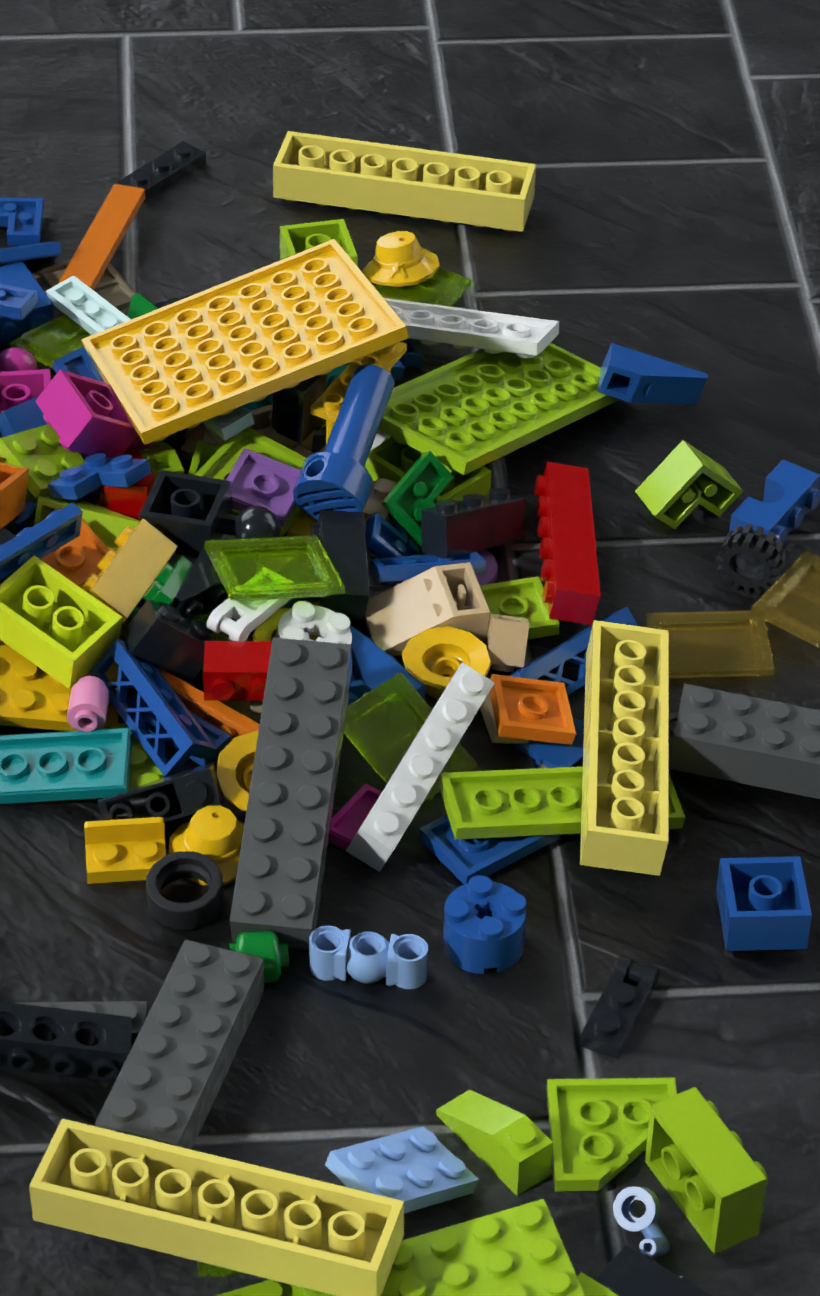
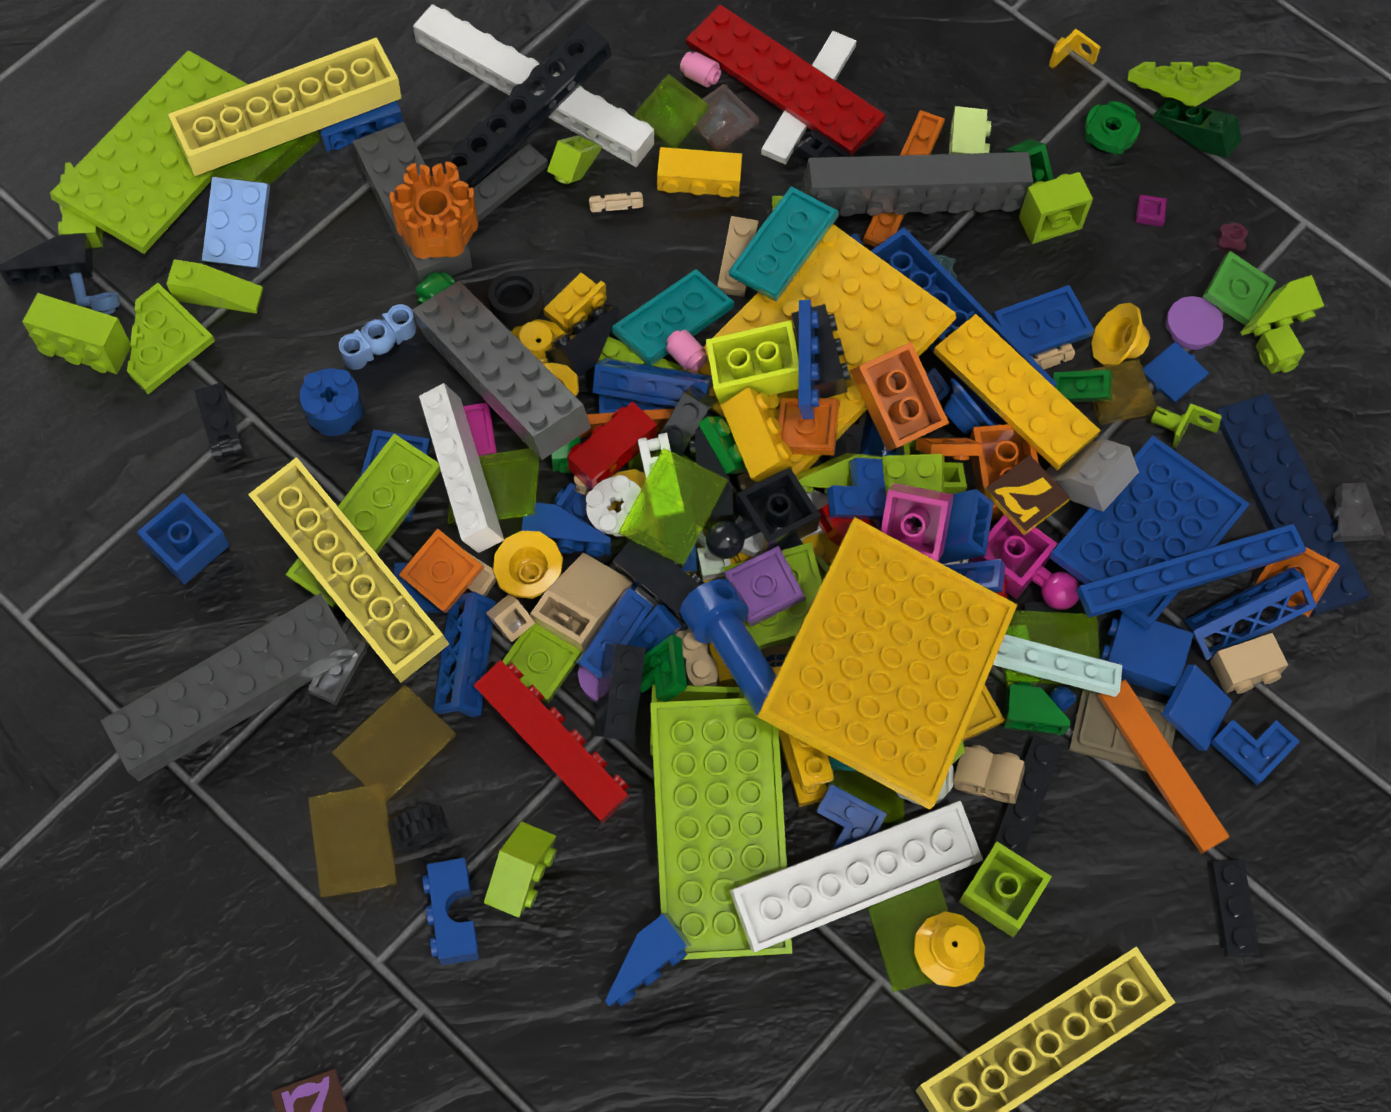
camera: 135 degrees right, 25 degrees up
(192, 953) = (434, 211): none -> orange piece

